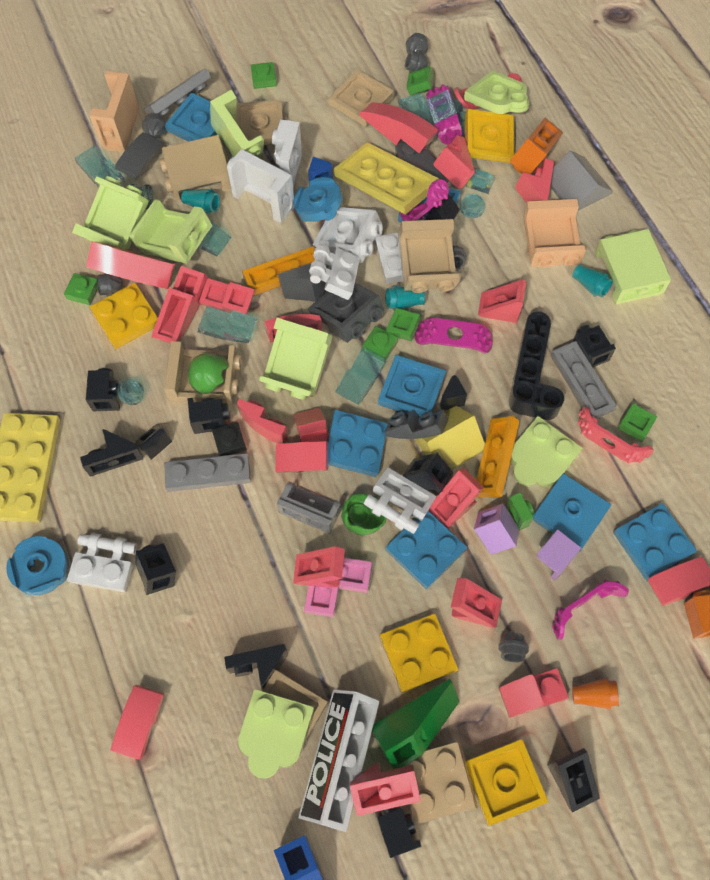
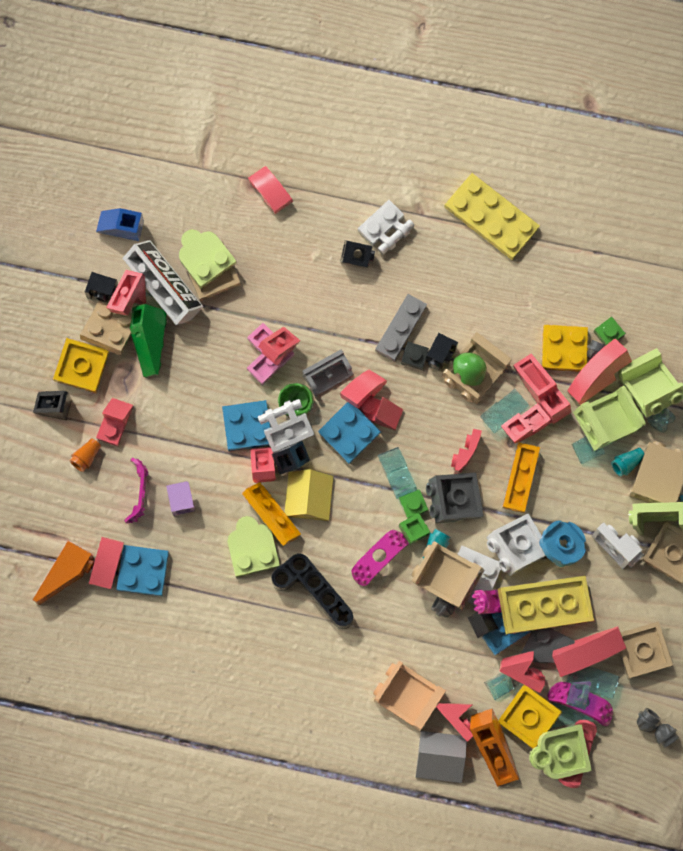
camera: 125 degrees right, 10 degrees up
(52, 574) = (402, 196): dark azure plate -> none
(102, 390) = (510, 296): black brick -> none
(117, 454) = (457, 280): black slope -> none
(130, 392) = (496, 313): clear light blue plate -> none
(153, 441) = (450, 307): black slope -> none
(256, 418) = (416, 380): coral slope -> none
(263, 180) = (584, 517): white panel -> none
(265, 659) = (250, 280): black slope -> none
(296, 359) = (437, 432): yellowish green panel -> none
(297, 284) = (497, 487): dark grey slope -> none
(319, 168) = (590, 562): blue slope -> none
(342, 271) = (482, 510): white plate -> none
(410, 426) = (330, 476): dark grey slope -> none
(411, 386) = (362, 498): dark azure plate -> none
(418, 653) = (188, 373): yellow plate -> none
(420, 80) = (626, 708): bright green plate -> none
(453, 395) = (336, 521): black slope -> none
(472, 206) = (478, 657): clear light blue plate -> none
(475, 604) = (189, 425): coral slope -> none
(496, 529) = (225, 476): lavender panel -> none
(503, 302) = (380, 610): coral slope -> none
(513, 647) = (148, 429): dark grey plate -> none
(520, 510) = (224, 500): bright green plate -> none
(571, 510) = (201, 534): dark azure plate -> none
(583, 380) = (281, 617): light grey plate -> none
(594, 281) = (349, 691): teal cone -> none
(594, 344) = (292, 648): black brick -> none
(622, 450) = (207, 602): coral piece -> none
(634, 265) = (341, 728): yellowish green panel -> none
(637, 422) = (225, 627): bright green plate -> none

